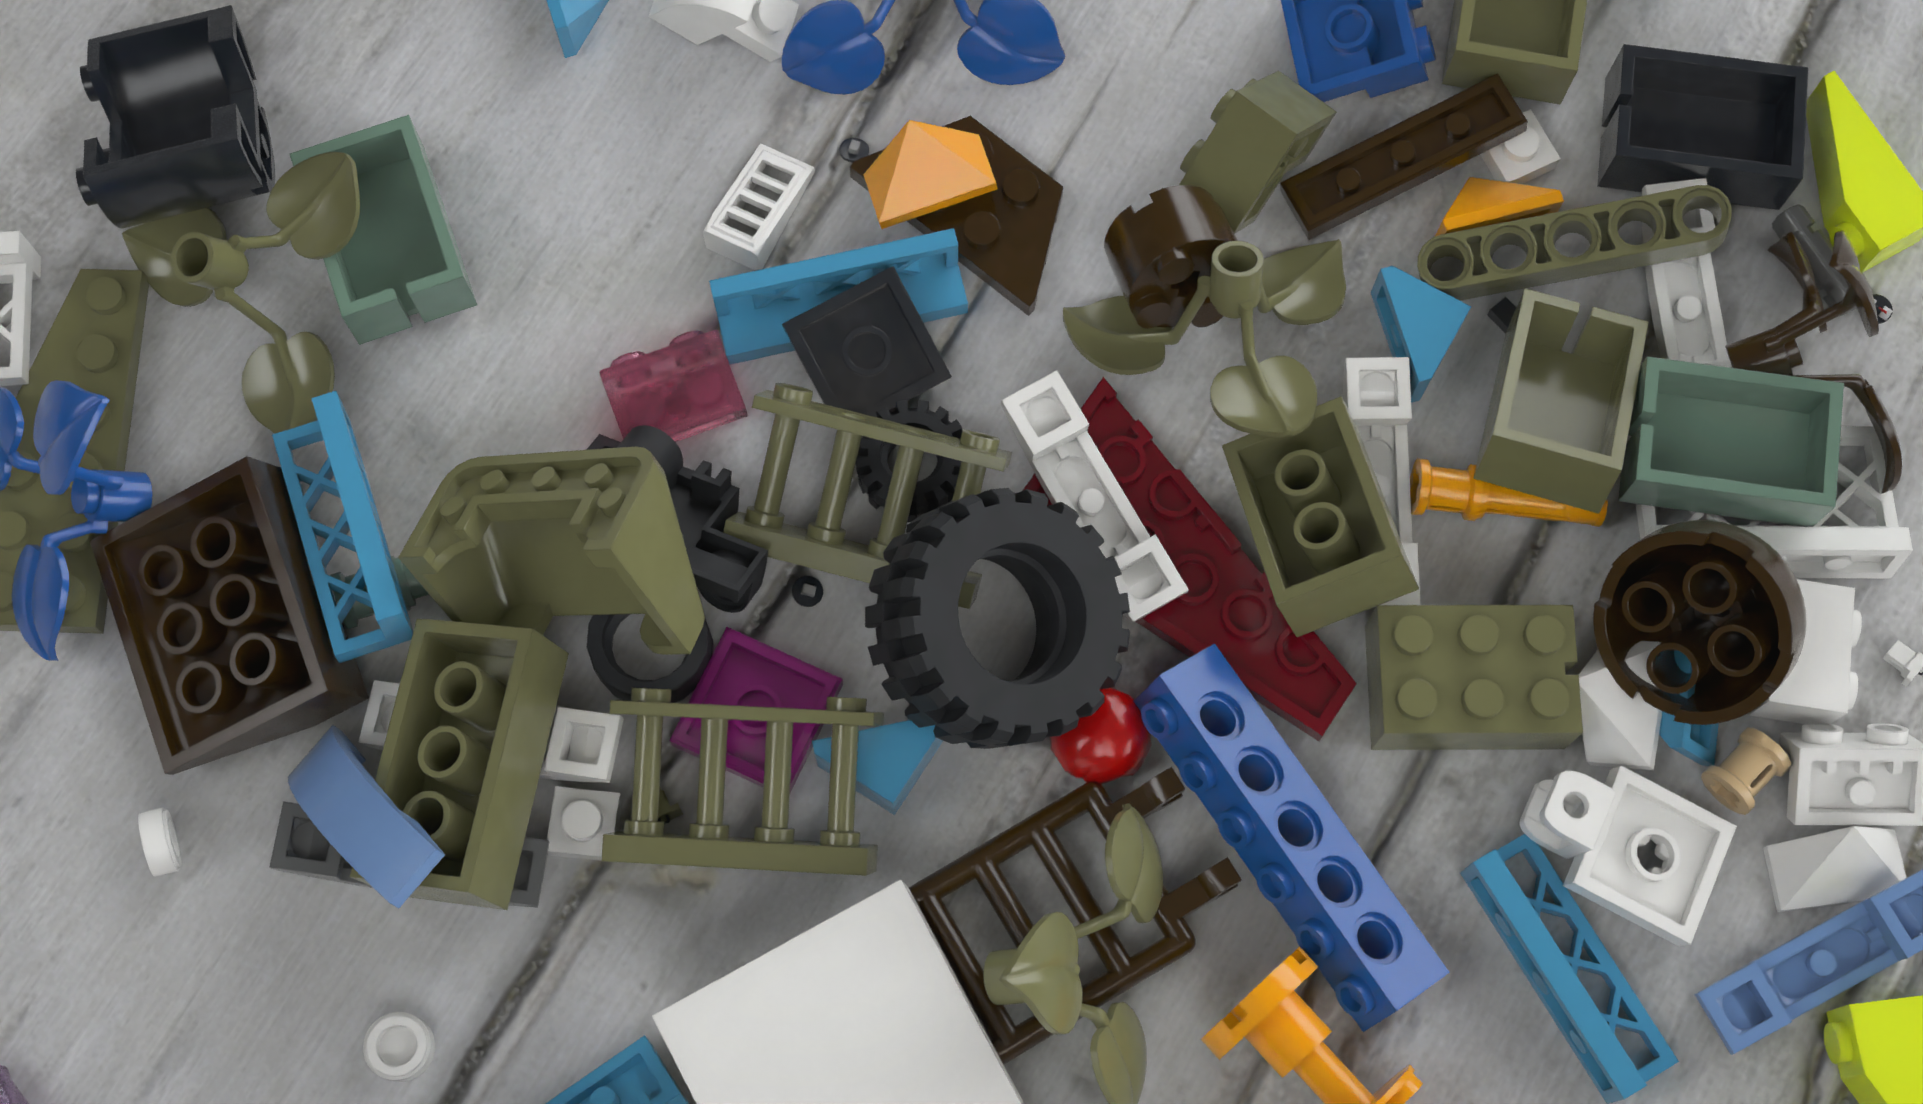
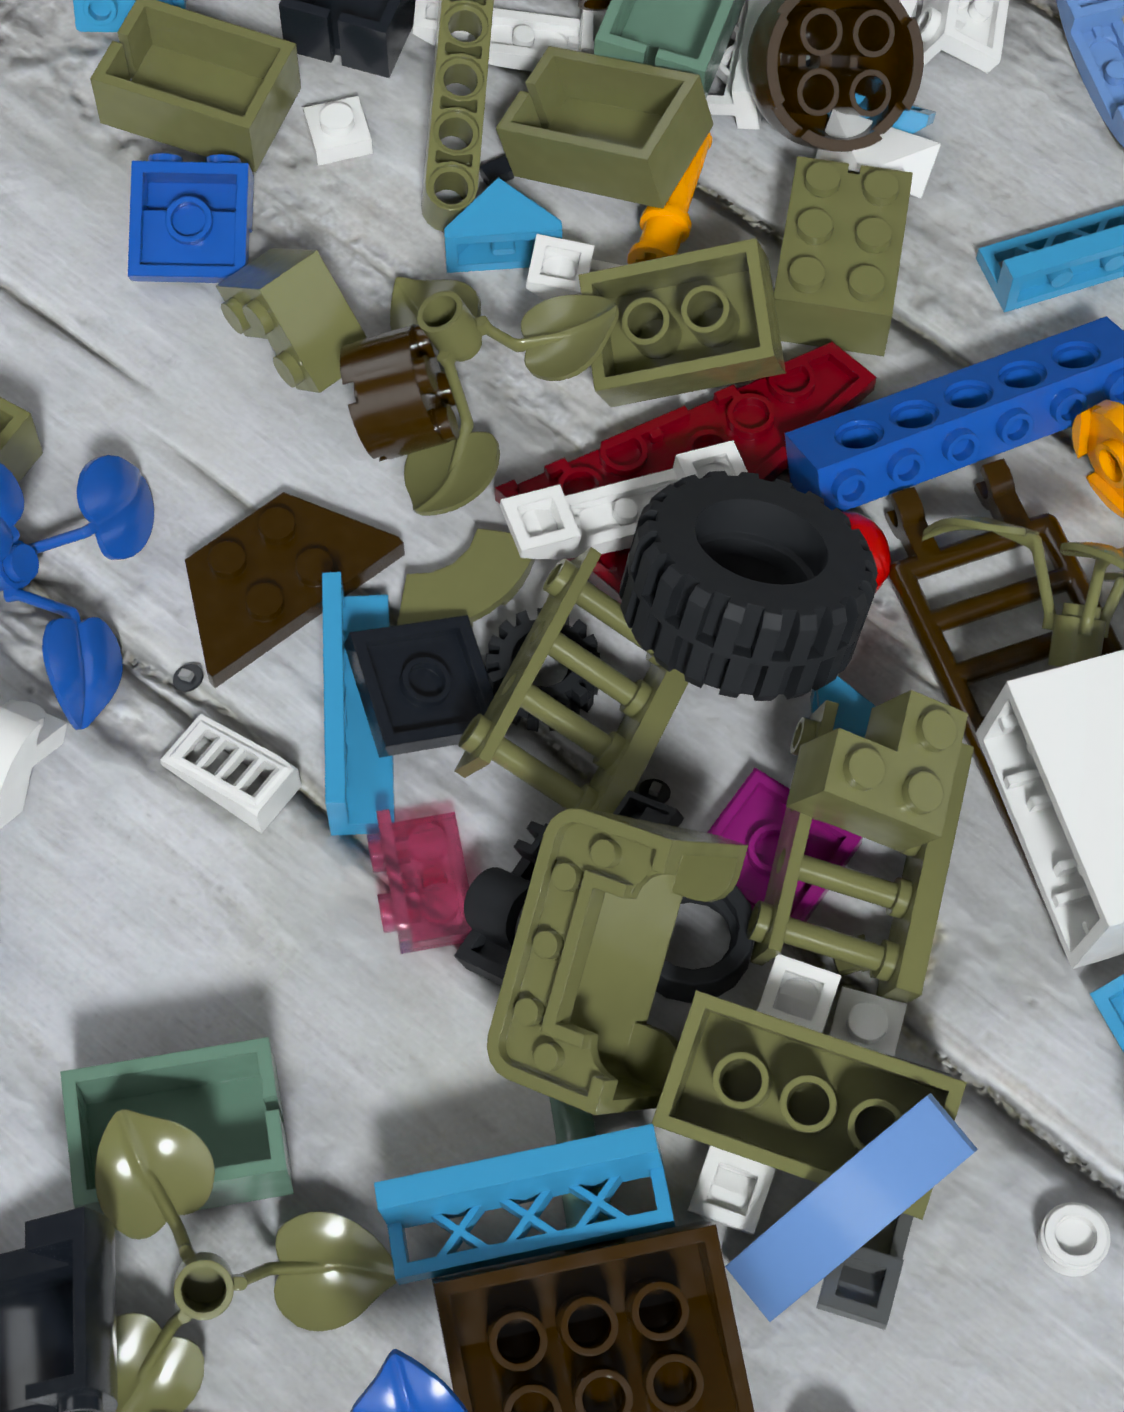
camera: 80 degrees left, 10 degrees down
(785, 791) = (890, 782): none -> olive brick
(927, 171) = (251, 598): light orange slope -> none
(982, 363) = (471, 586): none -> olive tile
(1403, 156) = (327, 201): dark brown tile -> none
(1494, 202) = (391, 158): light orange slope -> none
(1602, 832) = (988, 189): white plate -> none
(1746, 771) = (951, 85): tan bush -> none
(1833, 867) = (1036, 51): white slope -> none

